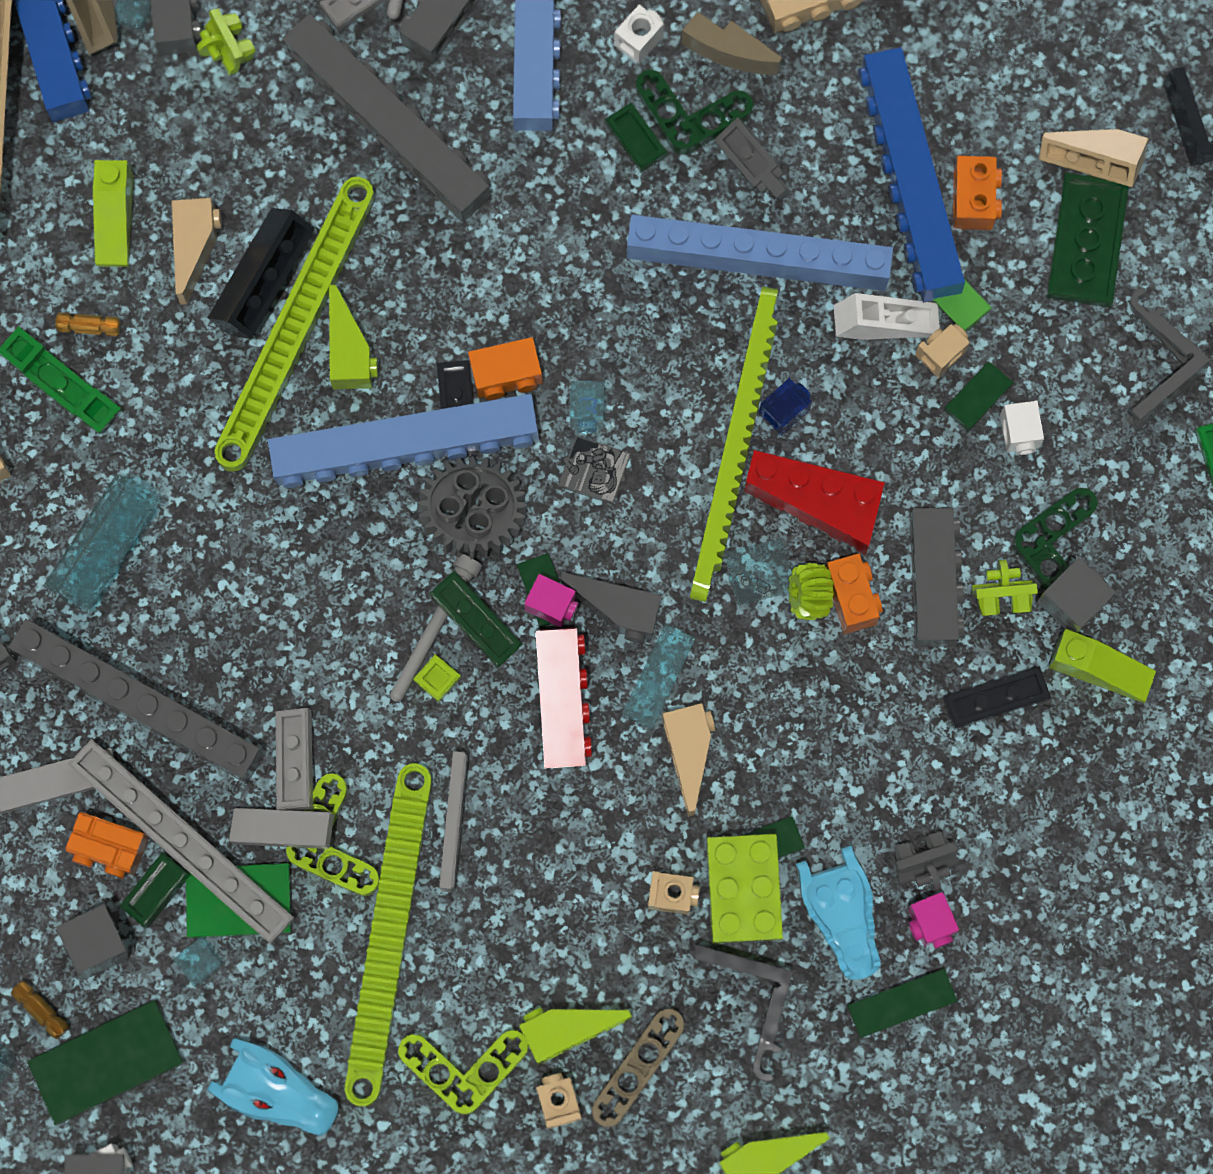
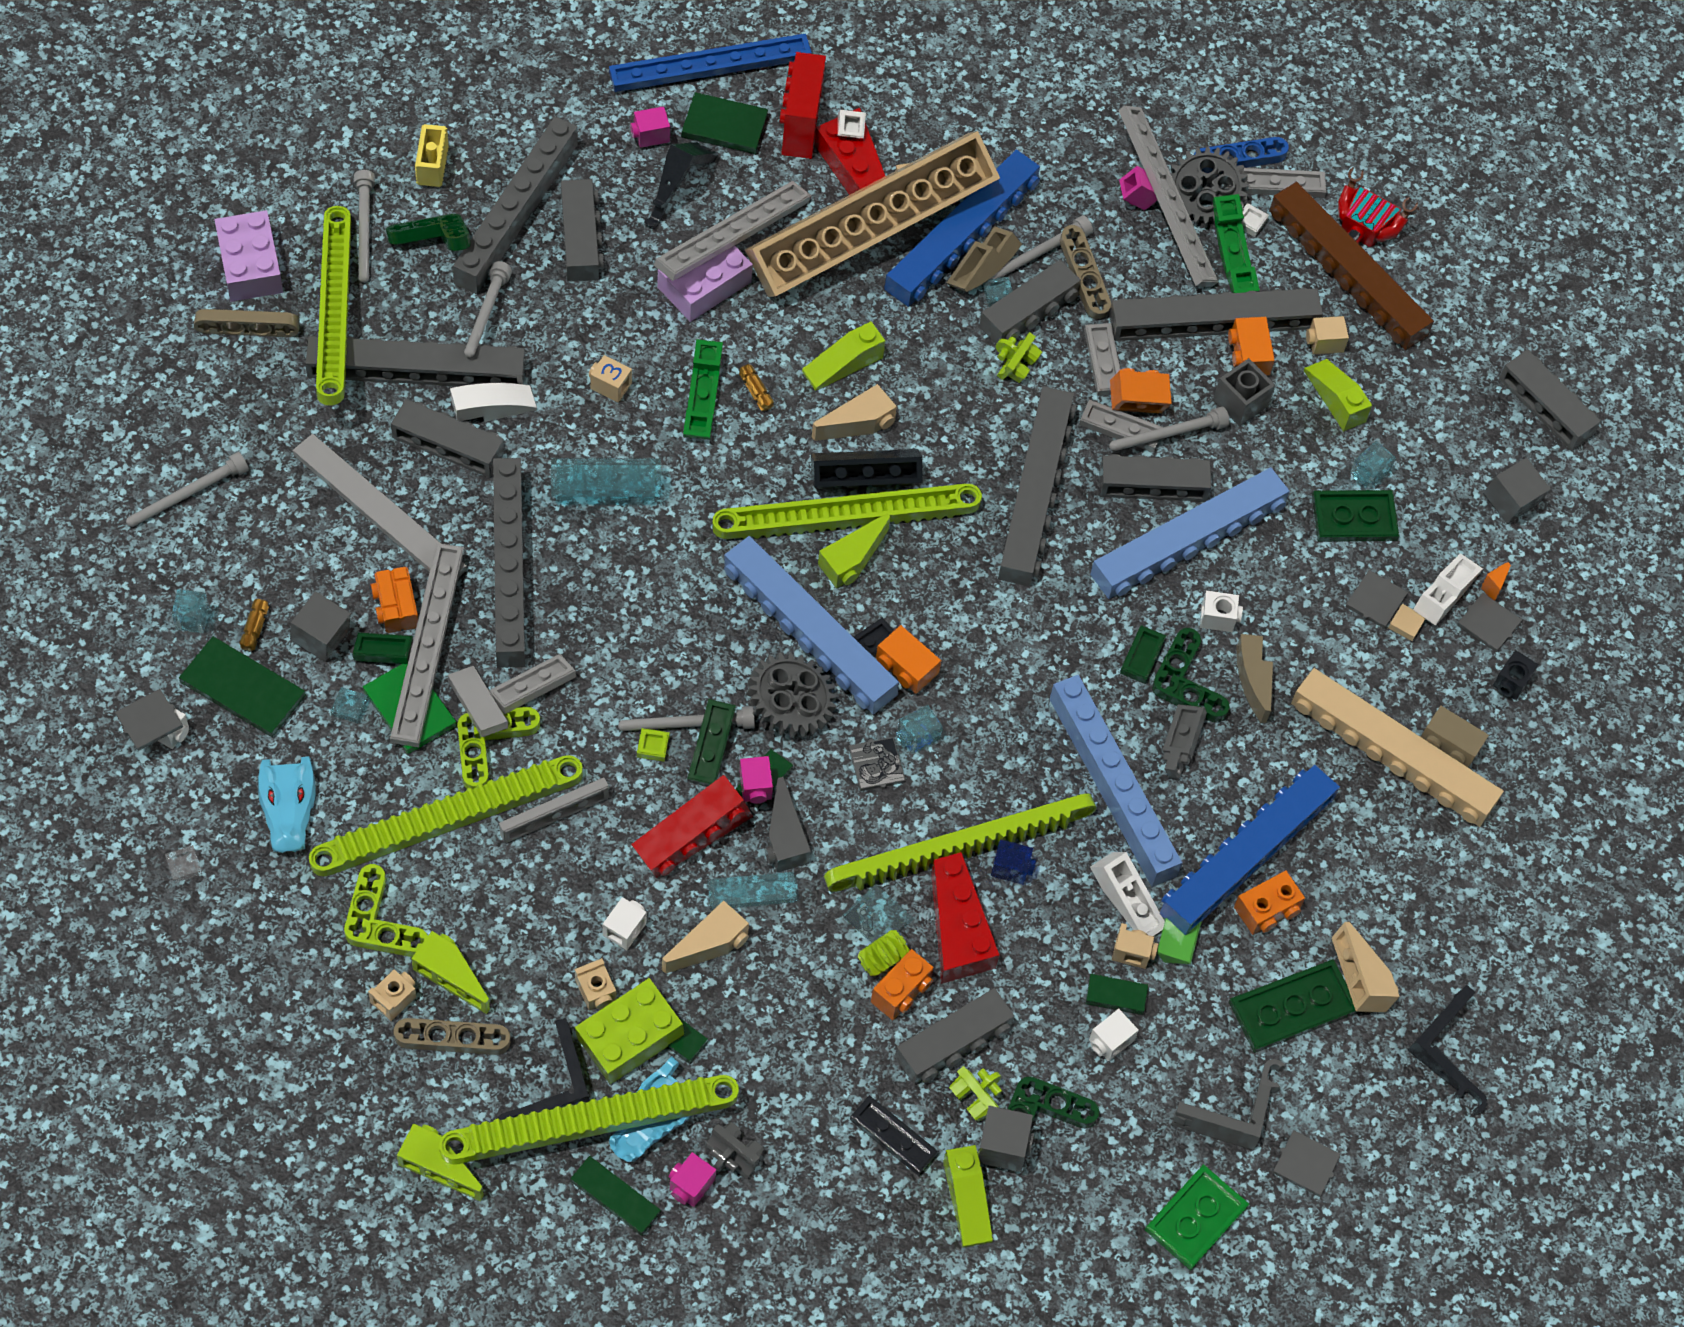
camera: 50 degrees right, 15 degrees down
(621, 823) = (625, 923): none -> white brick
(820, 986) = (588, 1119): none -> lime gear

